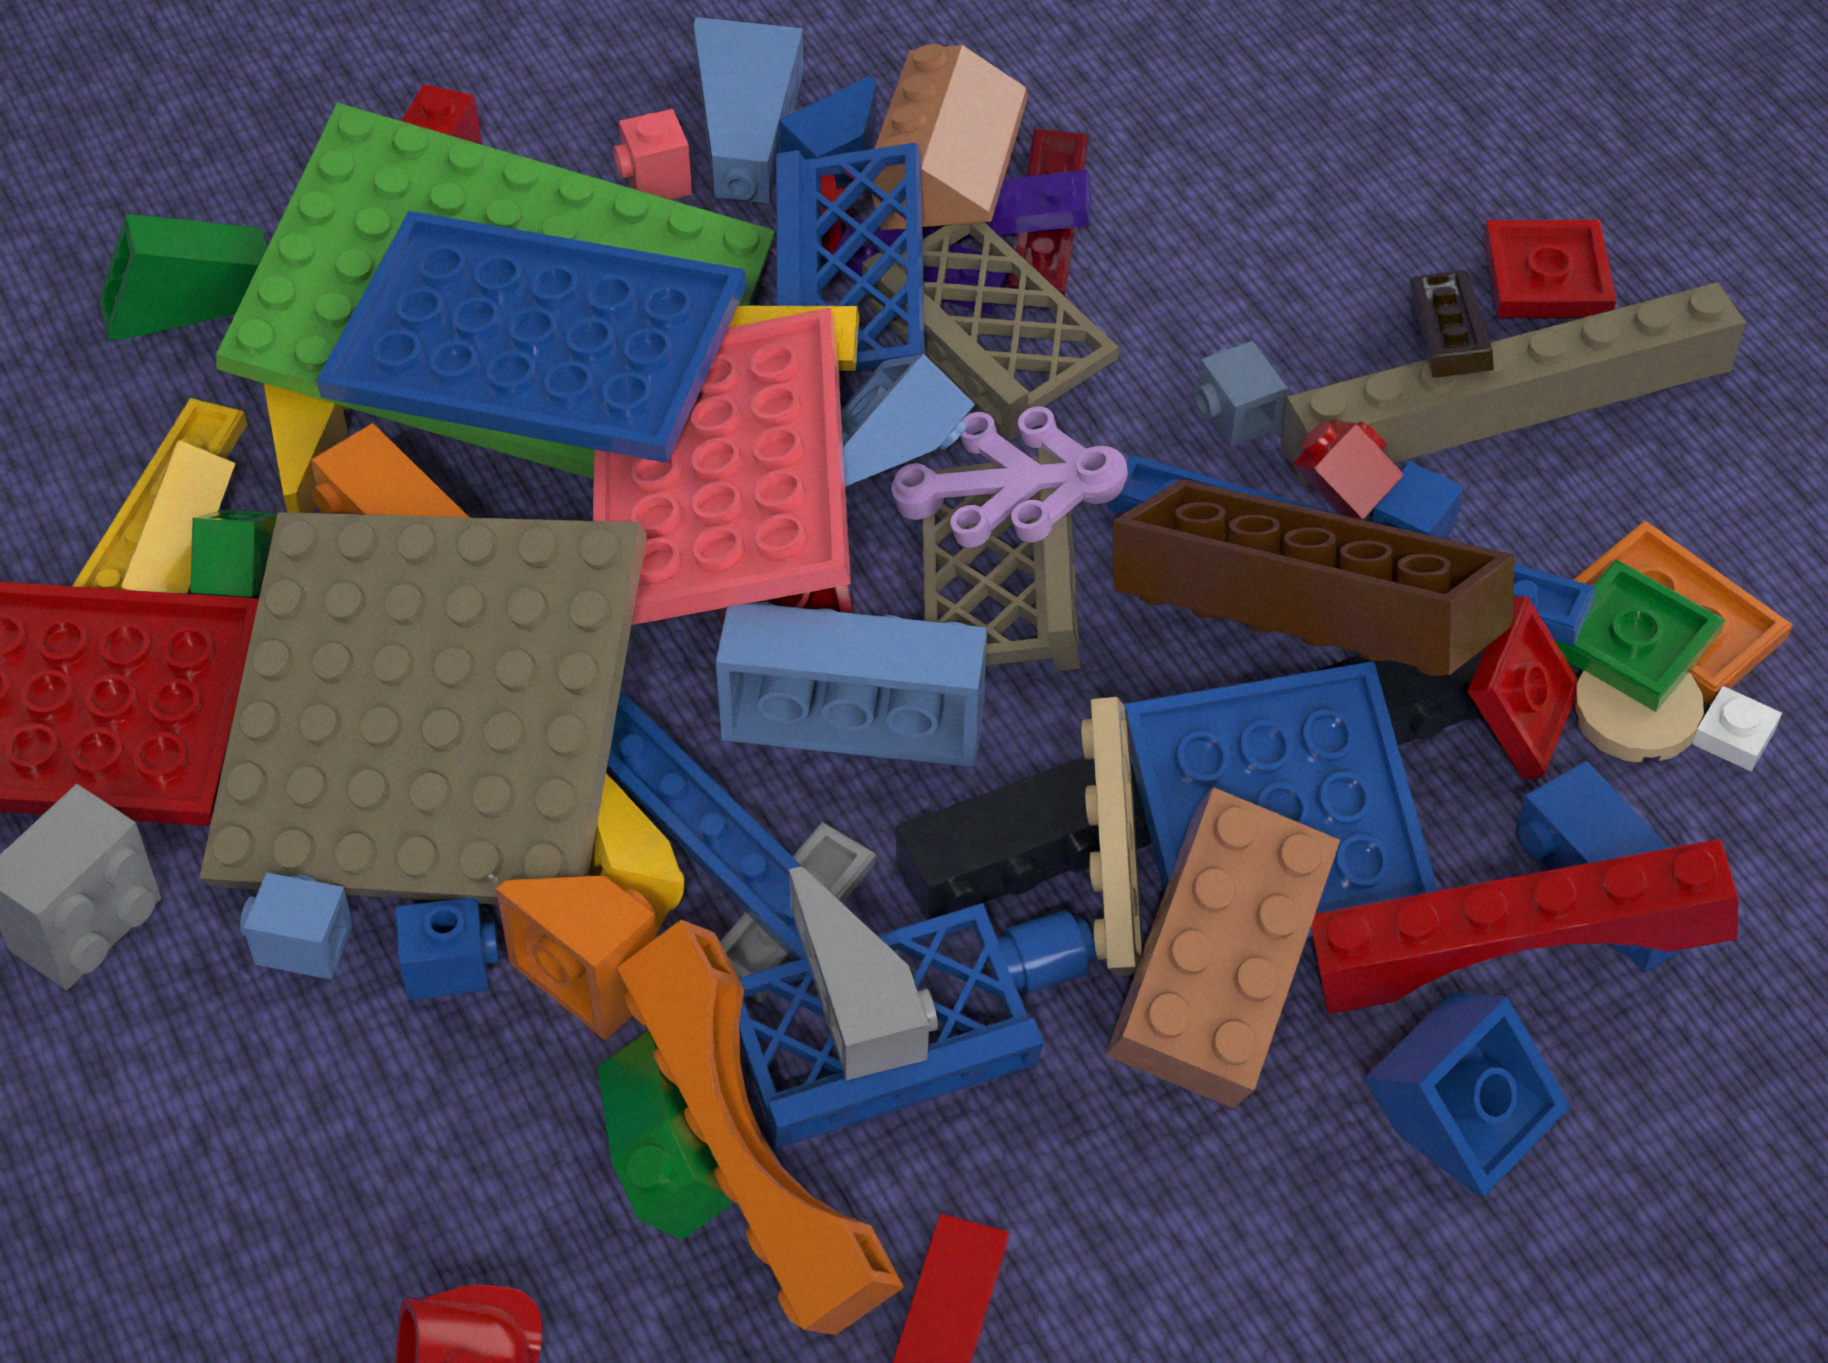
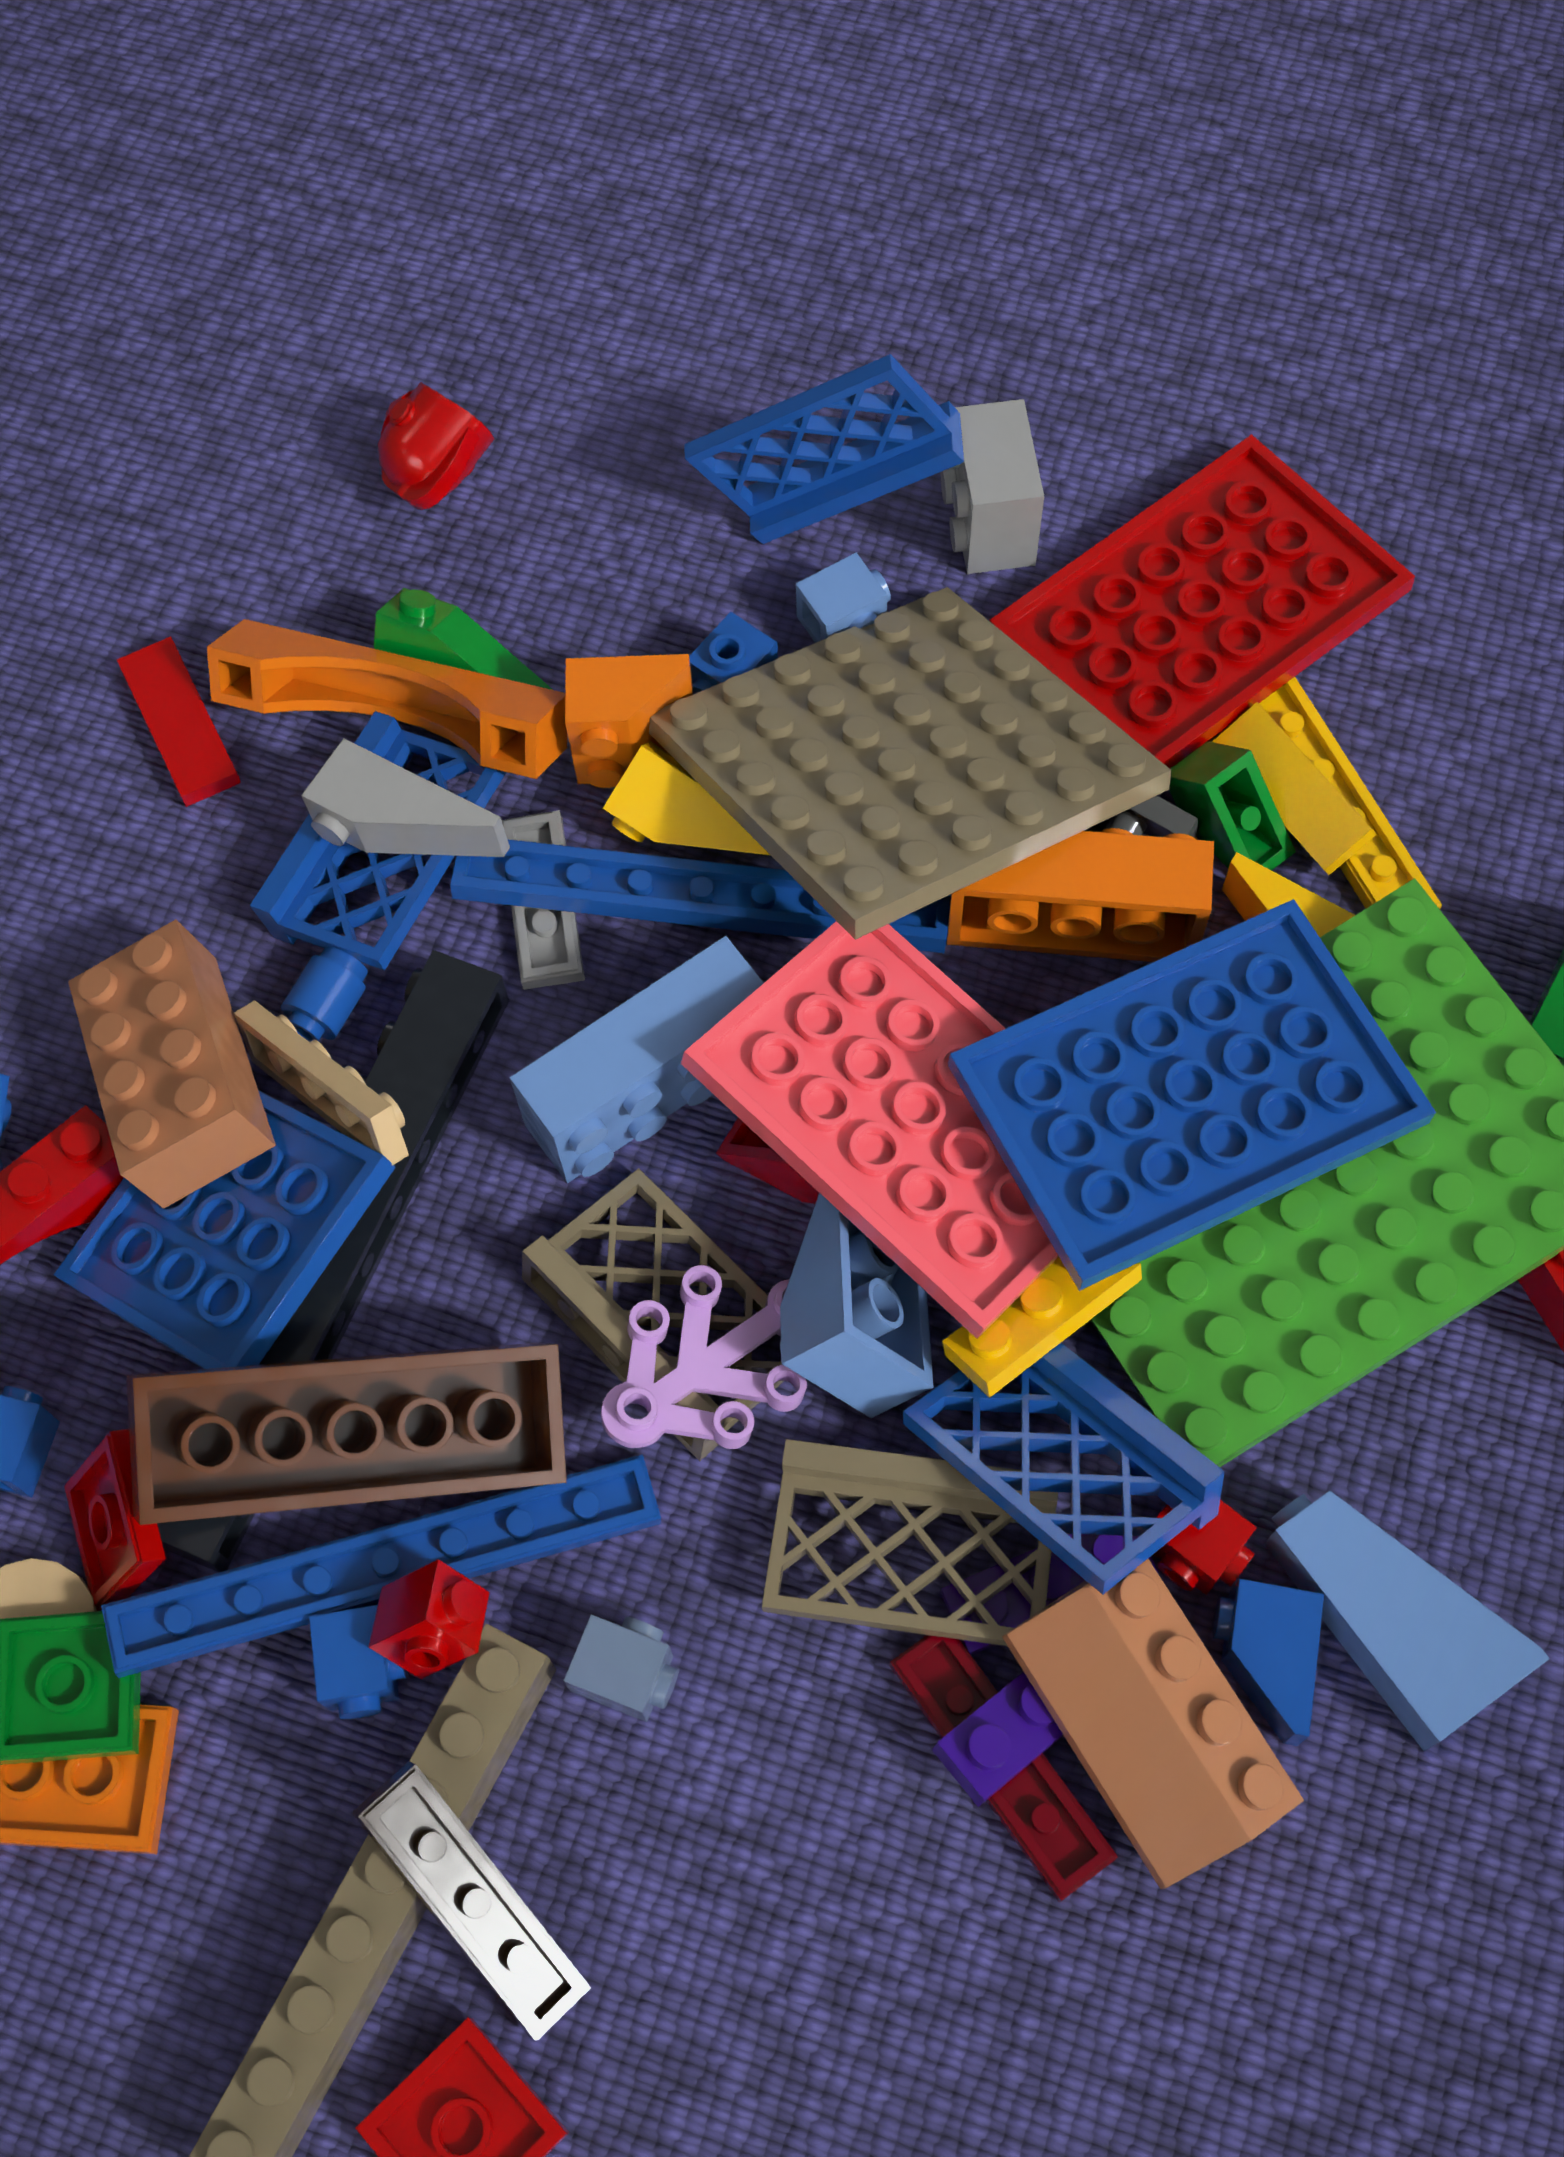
camera: 140 degrees right, 15 degrees up
(167, 977) = (834, 474): none -> blue fence
(654, 155) = (1394, 1464): coral brick -> none

